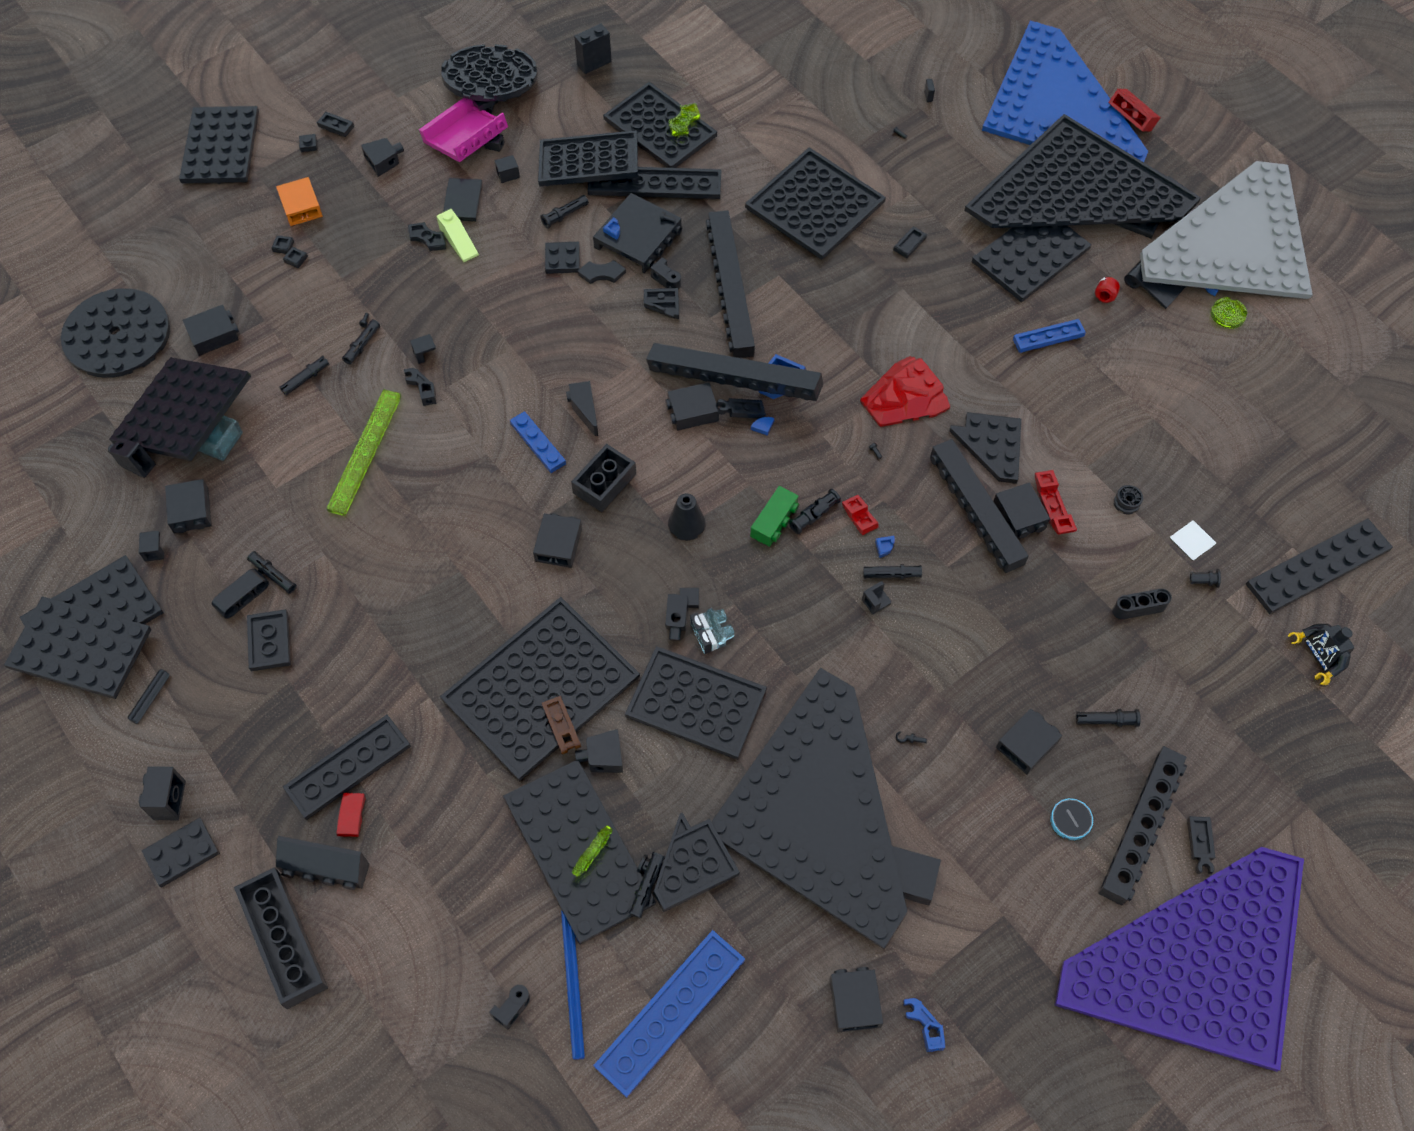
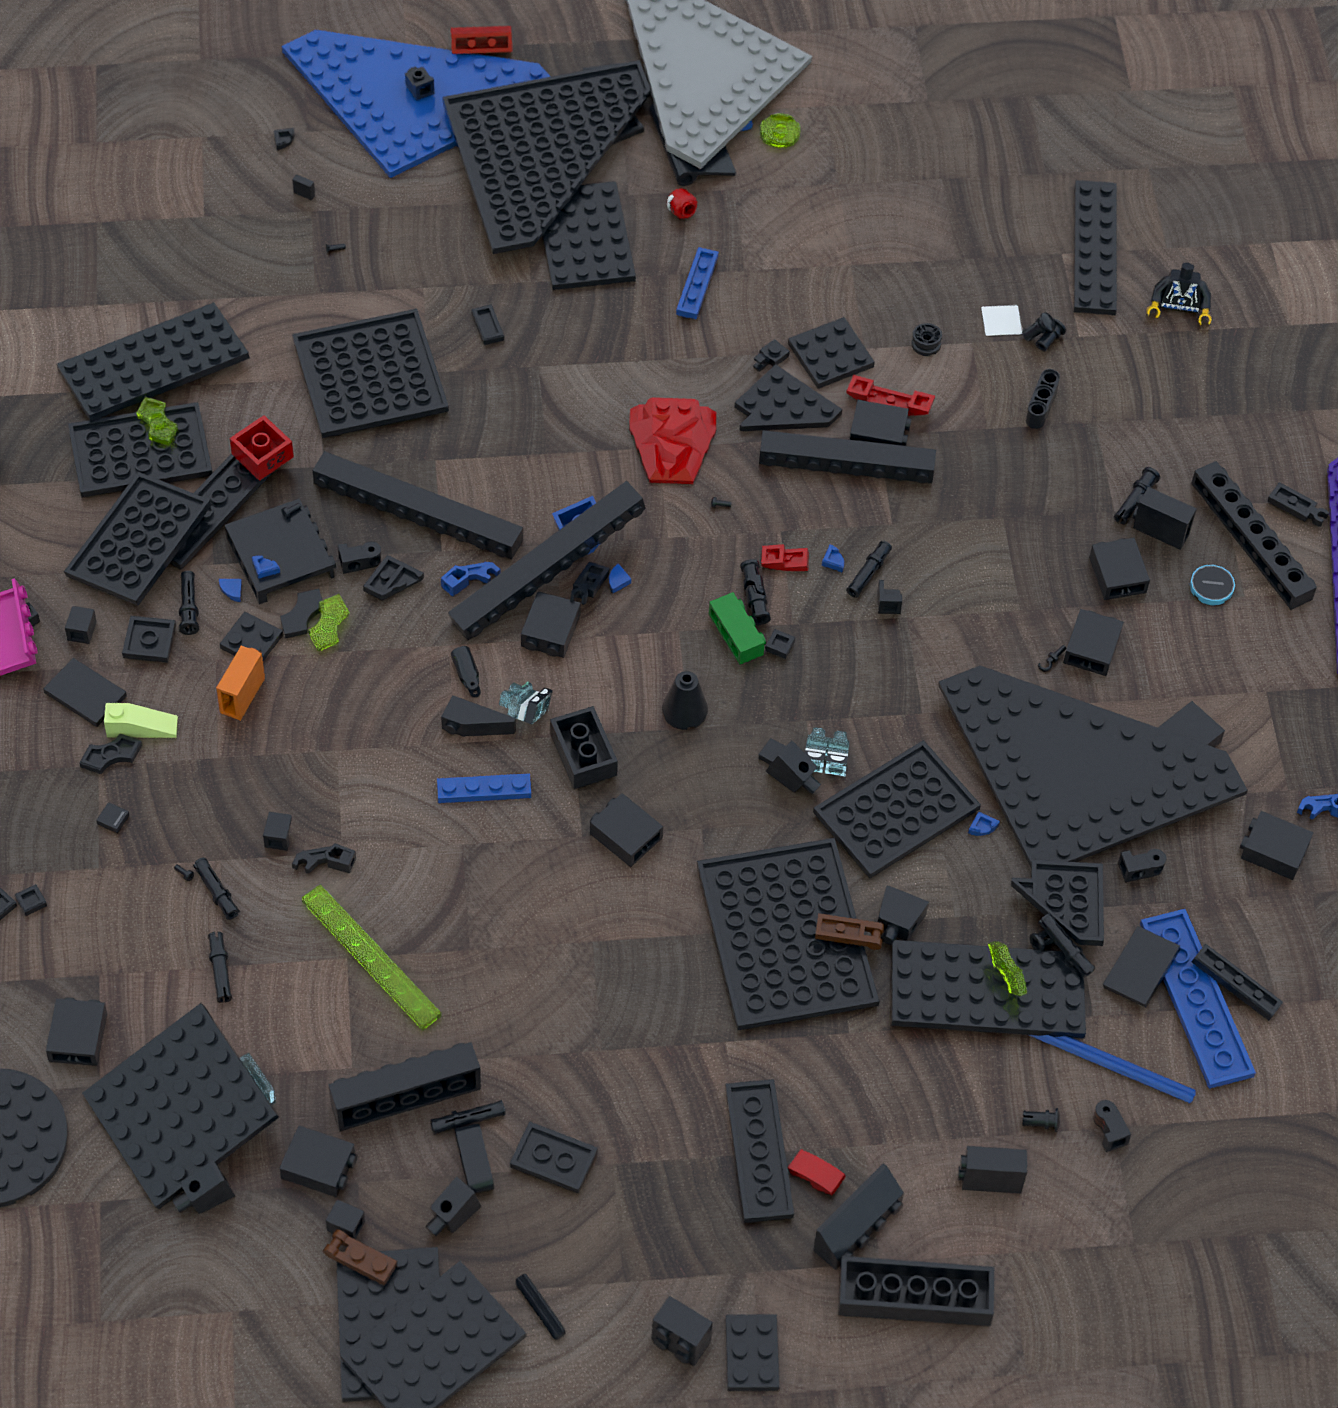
camera: 60 degrees left, 5 degrees down
(123, 568) = (360, 1257): none -> reddish brown plate
(191, 600) = (453, 1207): none -> black torso
(267, 521) = (405, 1086): none -> black brick
(380, 263) = (112, 817): none -> black tile
(413, 937) = (993, 1169): none -> black brick
(488, 954) = (1042, 1119): none -> black pin
(518, 266) = (240, 682): none -> orange brick
(522, 207) = (149, 639): none -> black plate
(592, 226) = (231, 588): none -> blue tile
(597, 289) = (325, 631): none -> clear neon green tile
(616, 425) = (525, 702): none -> clear light blue hips
(621, 380) = (466, 669): none -> black piece
(668, 953) = (1141, 966): none -> black tile
(697, 339) = (465, 573): none -> blue piece
(700, 176) = (261, 447): none -> red brick
(703, 1037) = (1237, 982): none -> black tile
(725, 769) = (983, 825): none -> blue tile
(730, 94) = (152, 361): none -> black plate
(765, 905) = (1141, 865): none -> black leg
(783, 550) = (780, 643): none -> black plate
(946, 758) = (1093, 642): none -> black brick
(961, 62) = (284, 138): none -> black tile
(1029, 412) = (771, 354): none -> black plate
(1063, 447) = (831, 352): none -> black plate
(1065, 93) = (417, 78): none -> black brick
(1098, 747) = (1163, 517): none -> black brick
(1208, 566) = (1042, 325): none -> black pin

